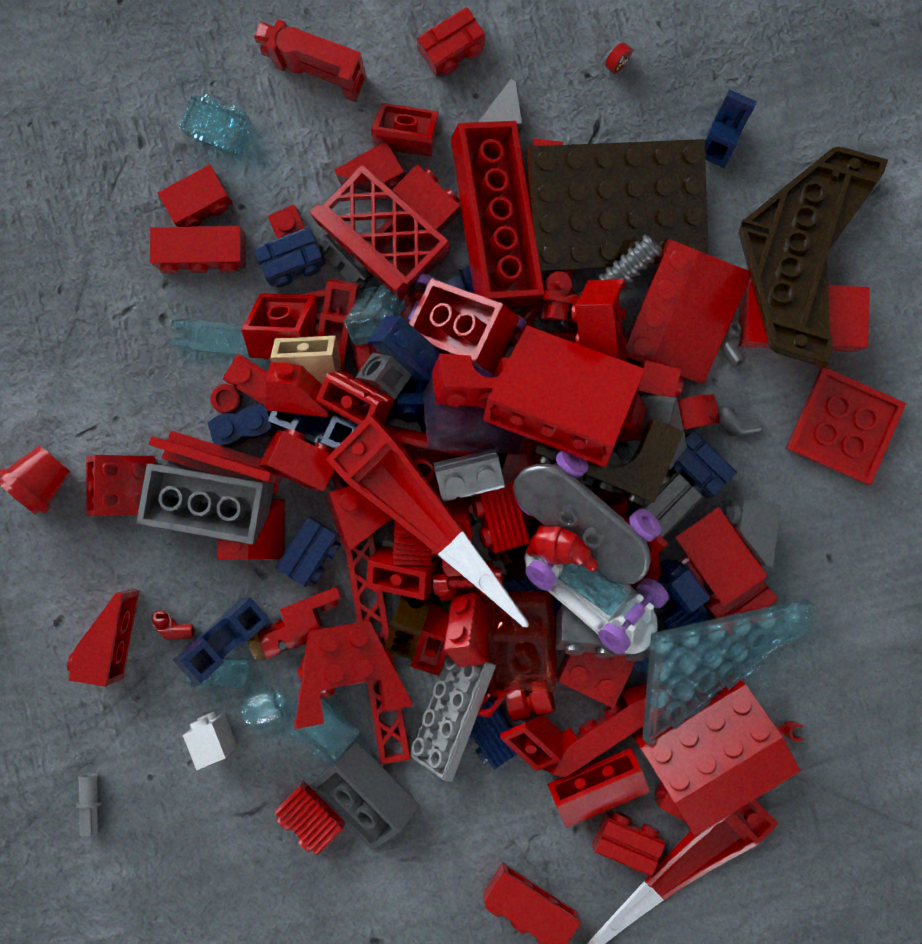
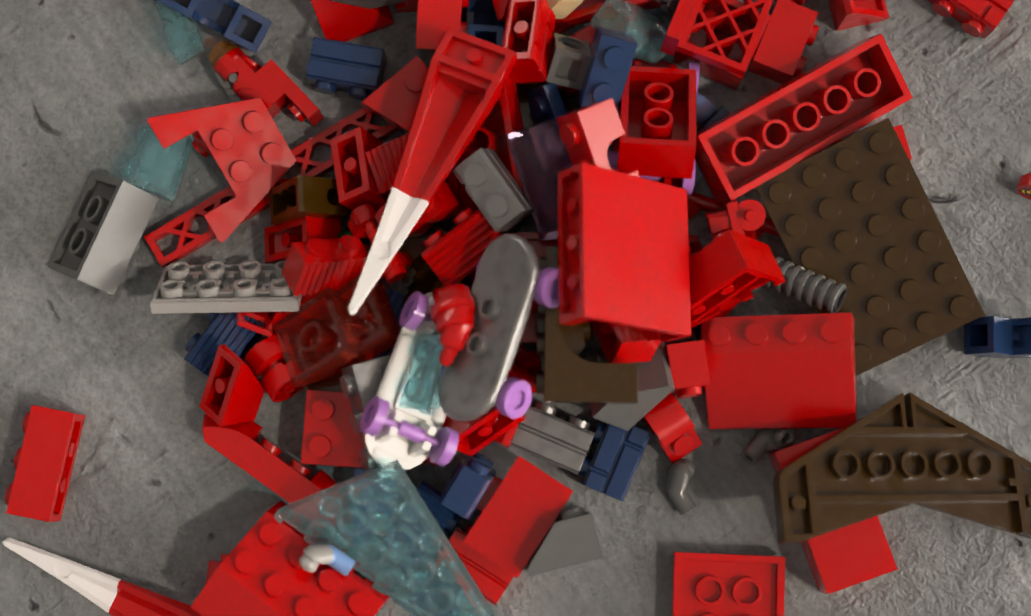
camera: 70 degrees right, 5 degrees down
(210, 739) = (103, 41): white brick -> none
(263, 707) = (158, 86): clear light blue head -> none
(309, 818) = (57, 182): red brick -> none
(505, 106) = (924, 84): light grey slope -> none
(598, 787) = (206, 484): red brick -> none
(629, 843) = (157, 545): red brick -> none
(695, 717) = (326, 554): none -> arm

